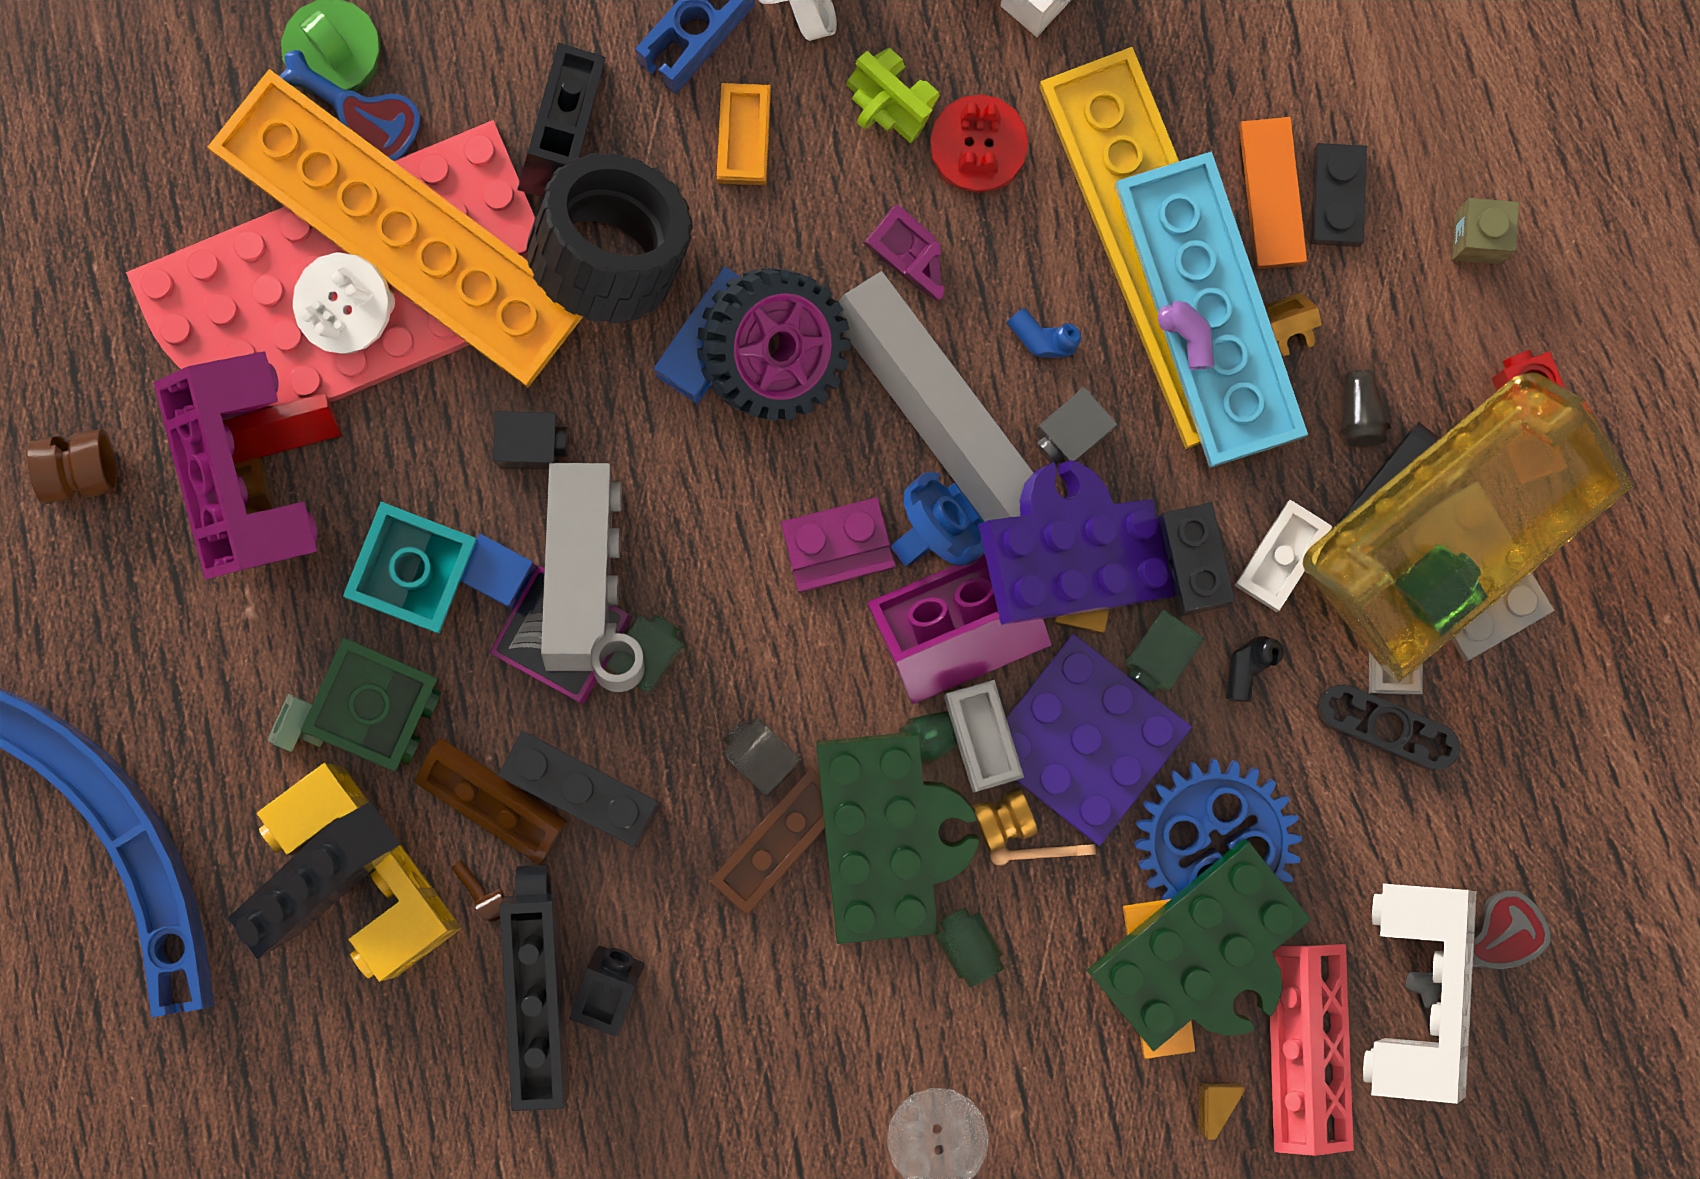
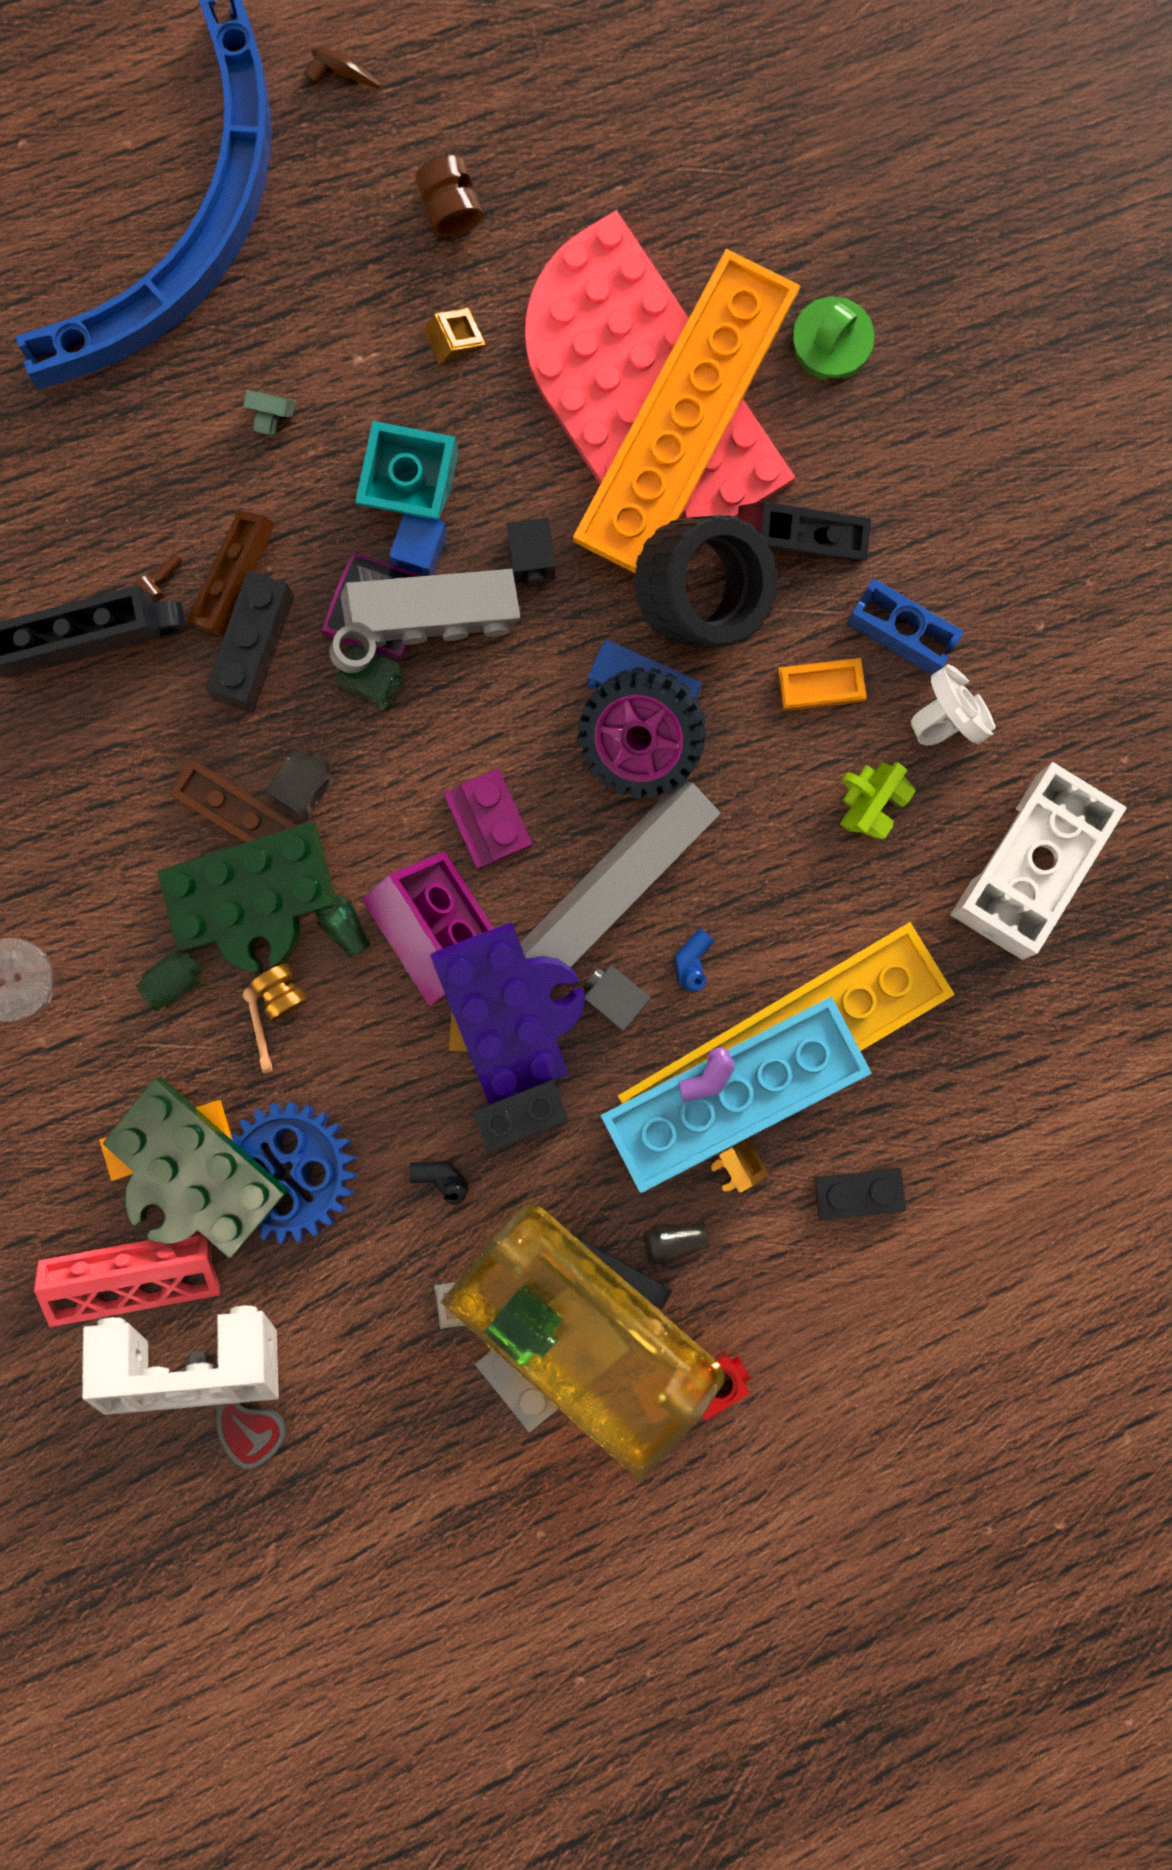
camera: 80 degrees right, 0 degrees up
(202, 449) = (402, 326): magenta plate -> none
(283, 427) = (501, 338): red tile -> none
(314, 880) = (136, 436): black brick -> none
(357, 285) = (630, 389): white plate -> none
(371, 705) = (291, 463): dark green plate -> none
(384, 121) = (775, 387): piece -> none
(407, 928) = (206, 456): yellow plate -> none
(607, 990) = (93, 692): black bracket -> none
(908, 250) = (747, 836): magenta slope -> none
(941, 523) = (517, 895): blue tile -> none
(978, 166) = (868, 877): red plate -> none
(983, 736) = (342, 961): light grey tile -> none
(1090, 739) = (357, 1050): dark purple plate -> none
(1162, 652) = (438, 1101): clear green brick -> none
(1216, 1106) = (70, 1205): pearl gold slope -> none
(1272, 193) = (851, 1136): orange tile -> none
(1280, 556) = (528, 1185): white plate -> none
(1417, 753) = (389, 1333): black beam -> none
(1485, 231) = (848, 1324): olive brick -> none

